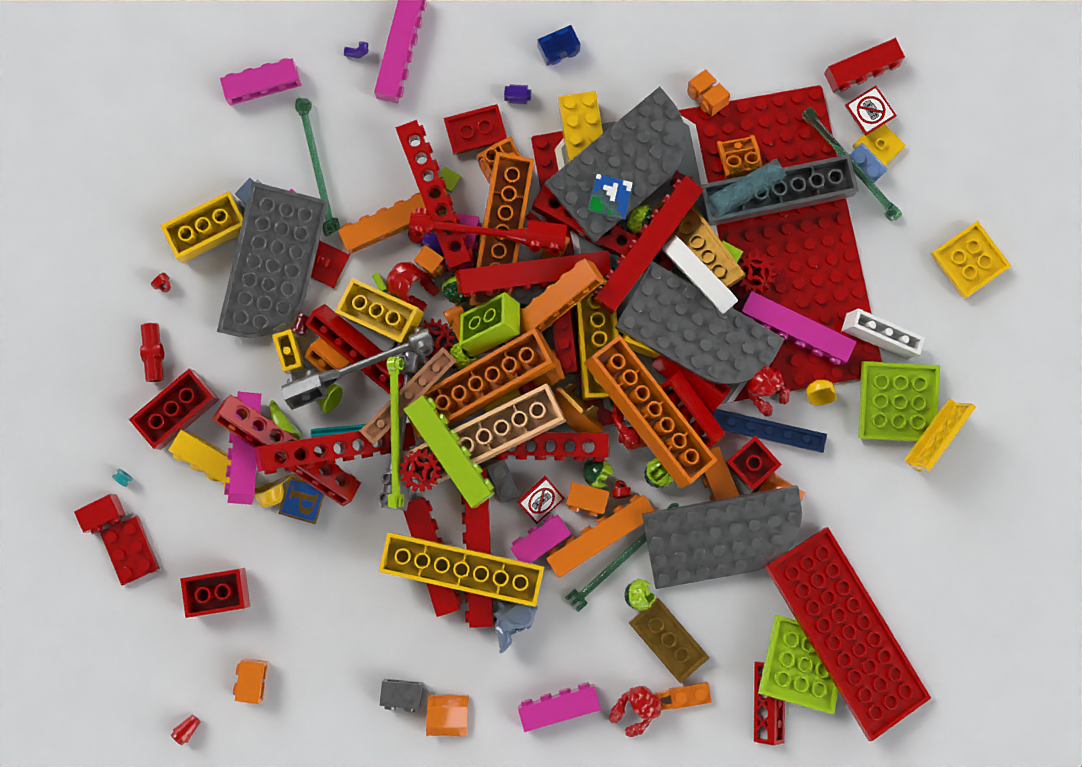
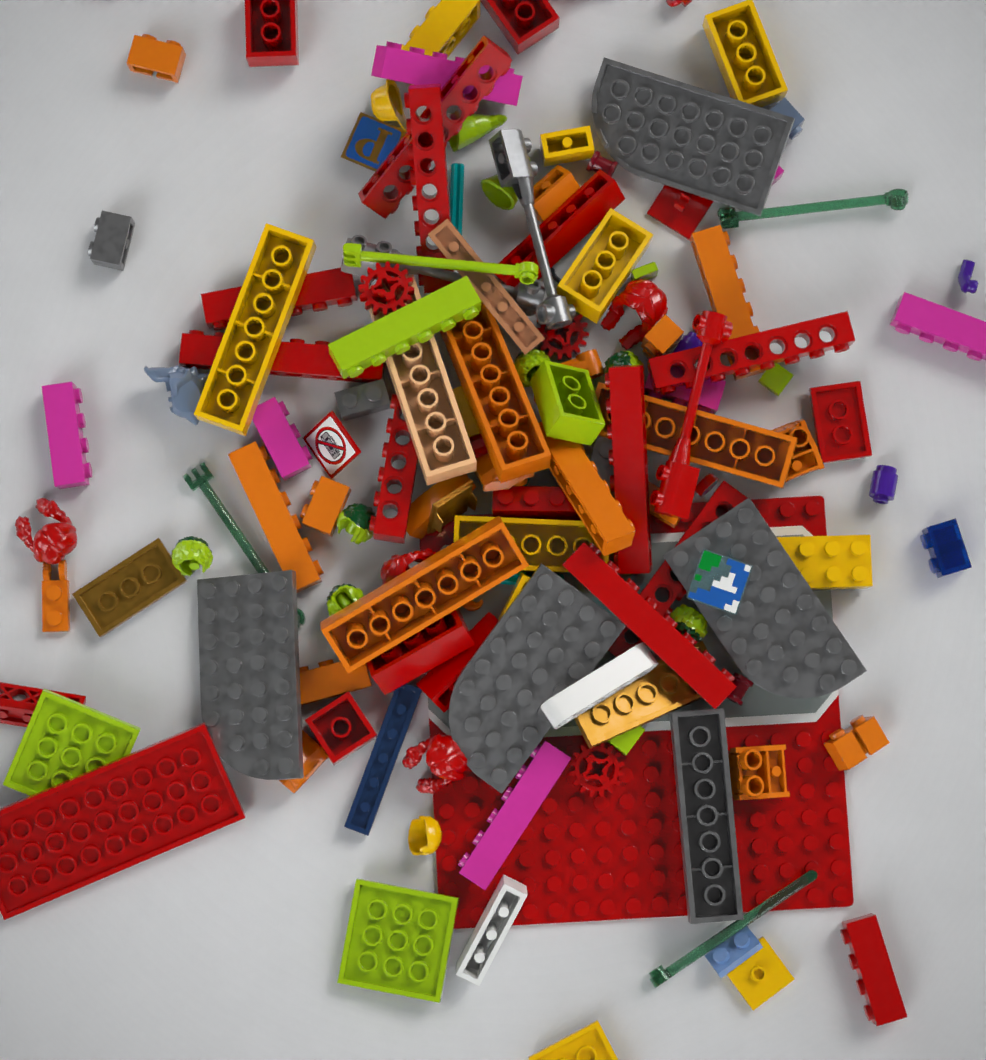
camera: 100 degrees right, 0 degrees up
(260, 81) = (936, 147): dark pink brick -> none
(447, 715) = (78, 294): orange slope -> none
(623, 492) = (327, 552): red tile -> none
(746, 188) = (709, 765): clear light blue brick -> none
(870, 110) = (807, 965): piece -> none
(938, 435) = (344, 980): yellow fence -> none

